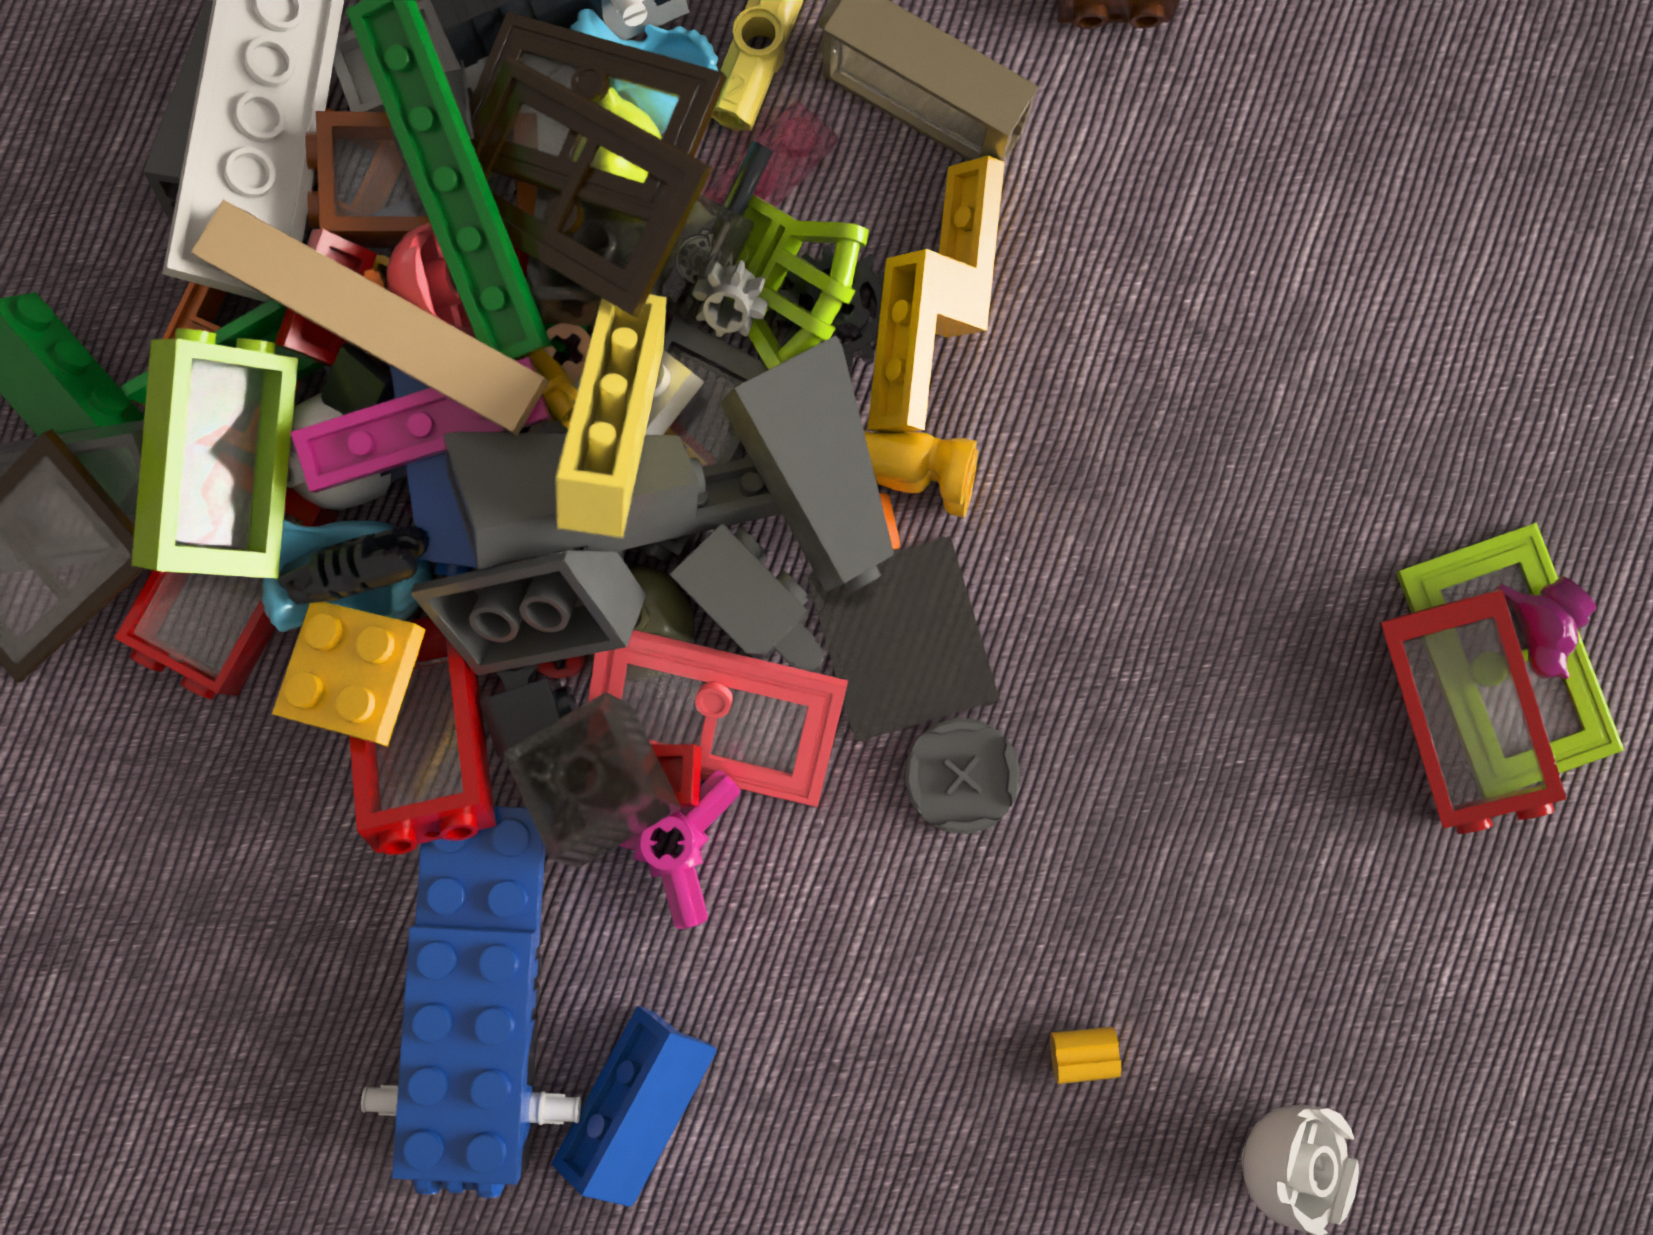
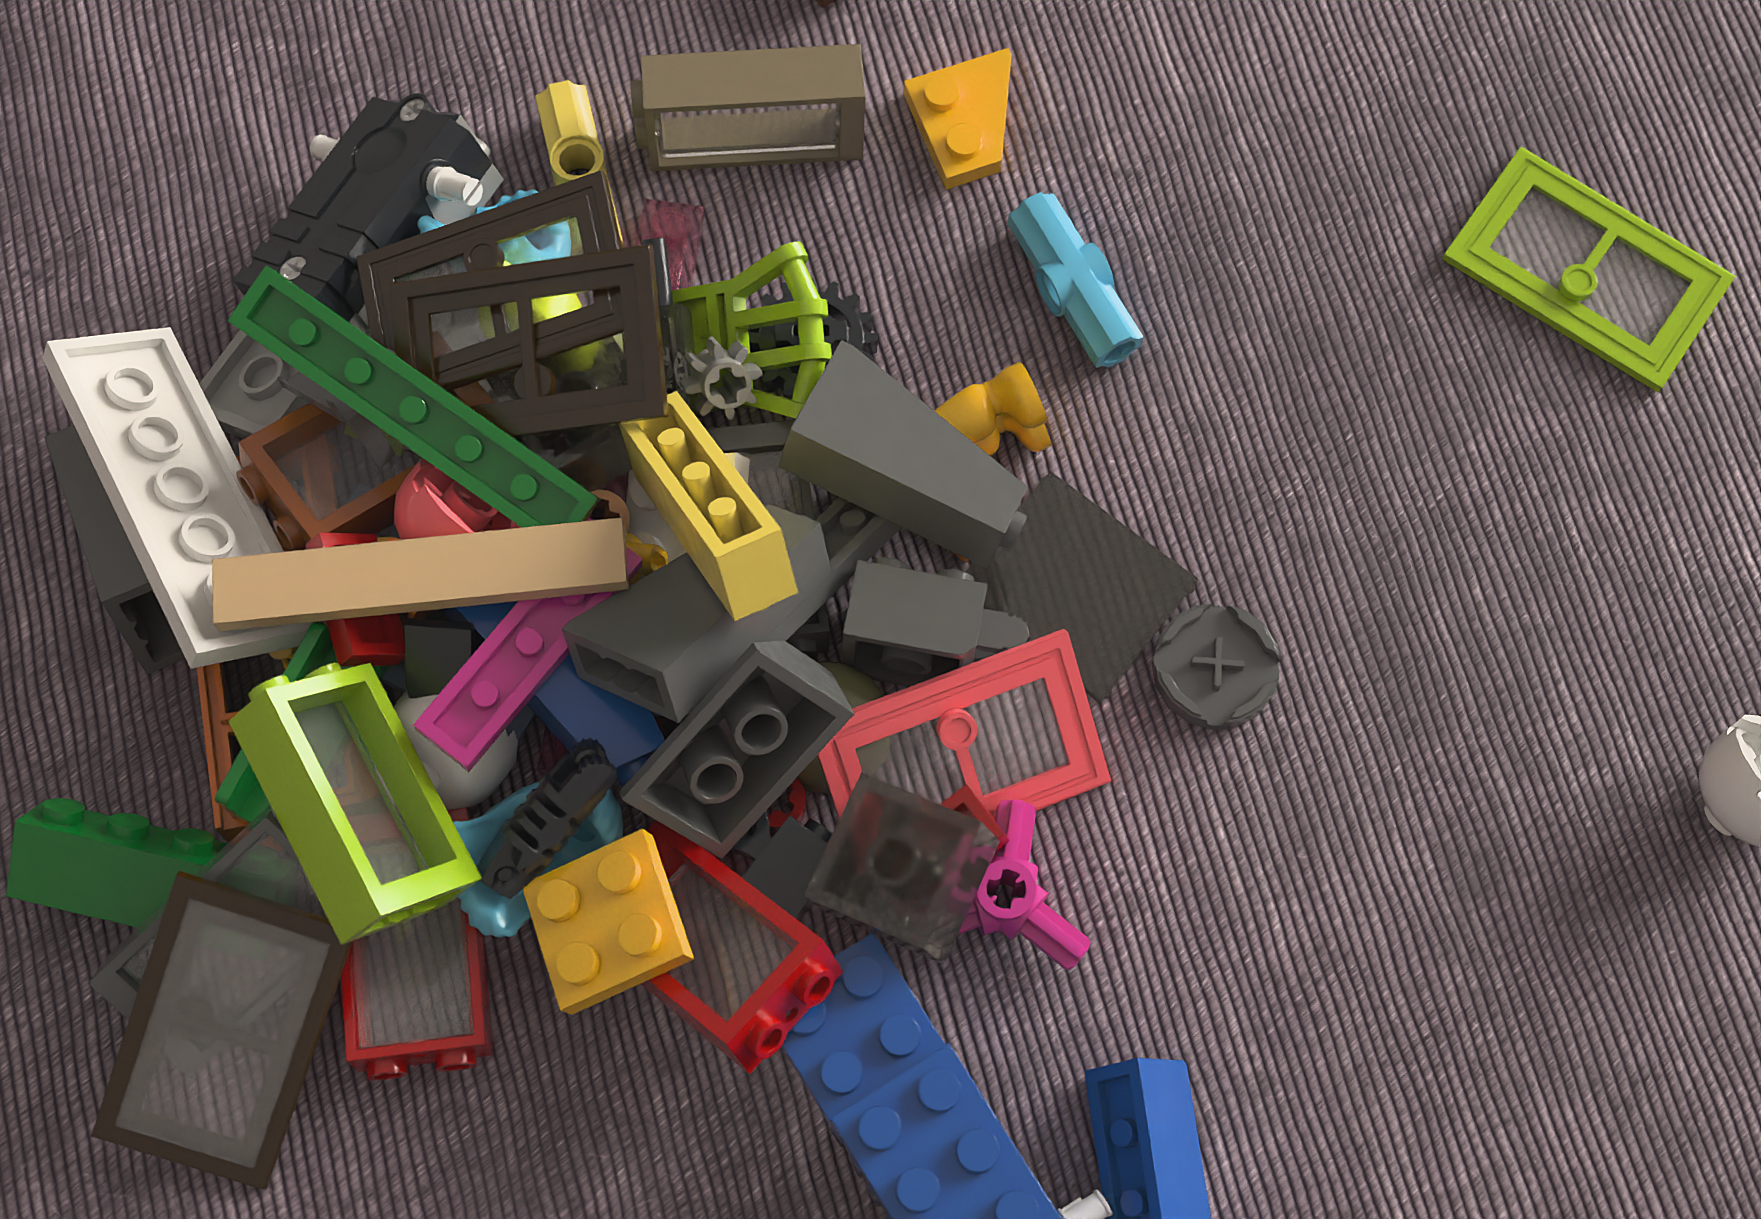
camera: 35 degrees left, 15 degrees down
(935, 295) = (891, 273): yellow bracket -> none
(1083, 394) = (1074, 280): none -> medium azure piece
(1085, 1055) = (1510, 828): yellow piece -> none
(1101, 193) = (963, 116): none -> yellow wing
(1474, 712) = (1594, 317): window -> none
(1551, 623) = (1596, 209): magenta animal -> none

